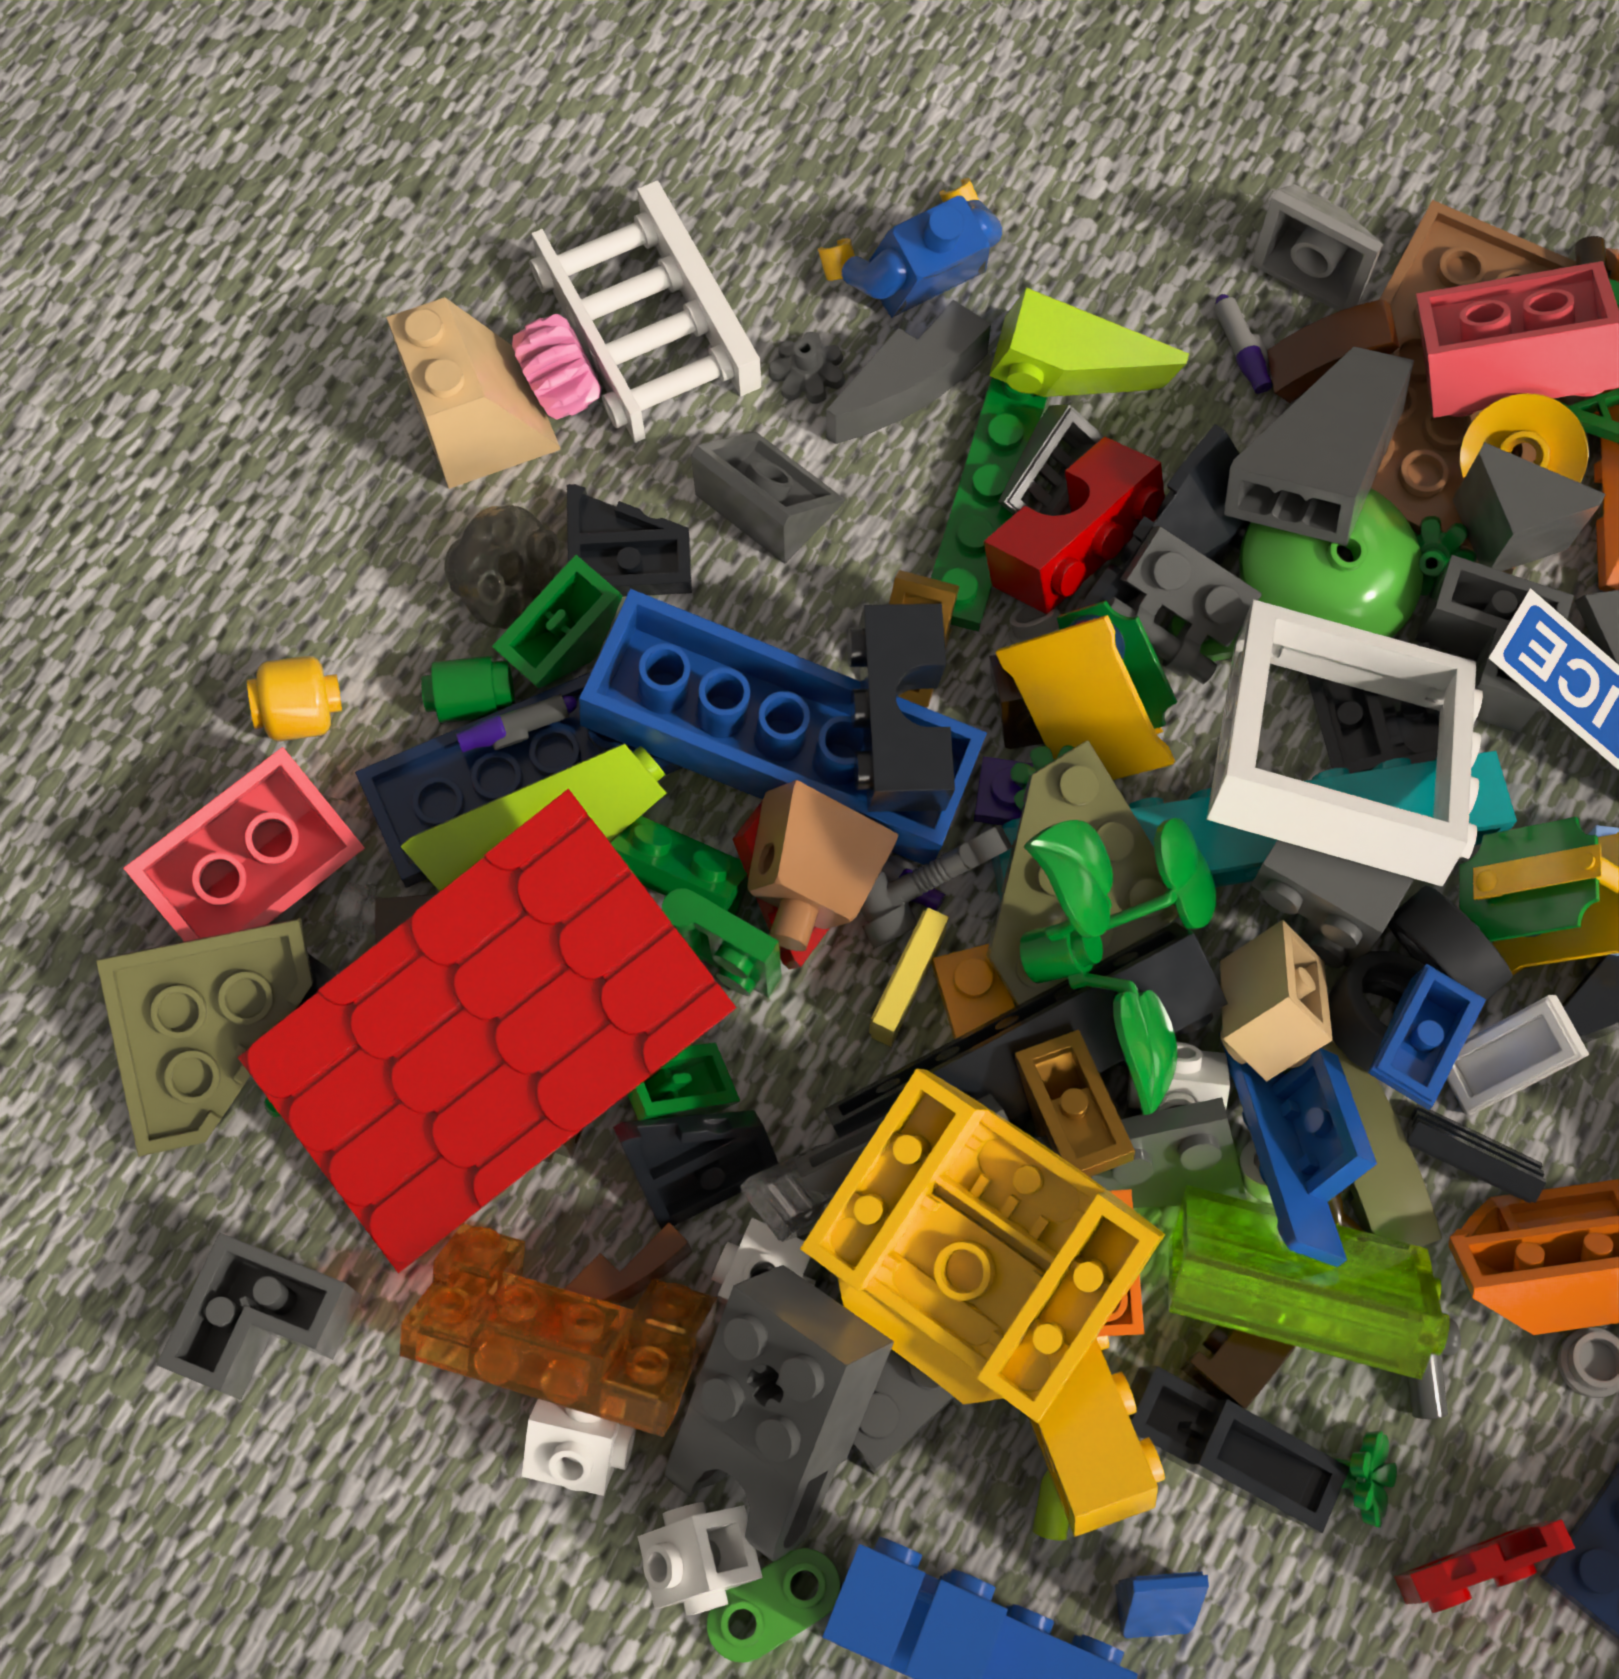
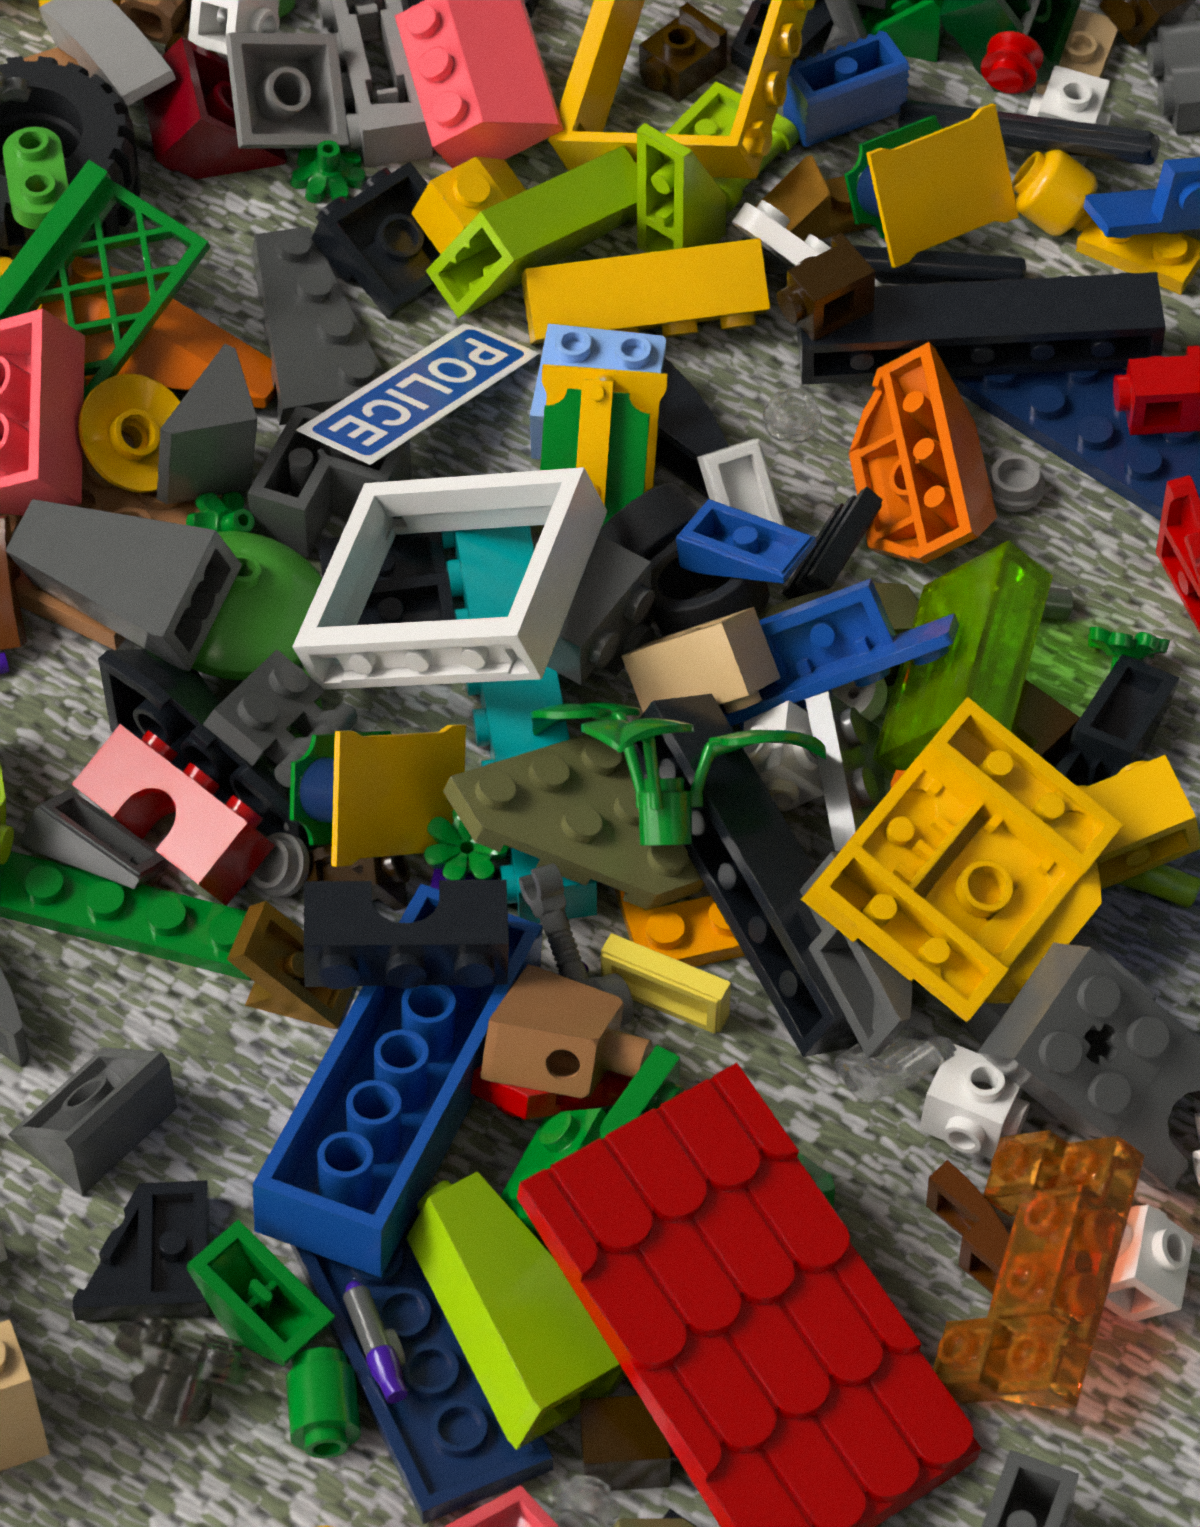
camera: 90 degrees left, 15 degrees down
(694, 1159) = (862, 1163): black wing -> none
(1073, 1105) = (812, 812): pearl gold slope -> none

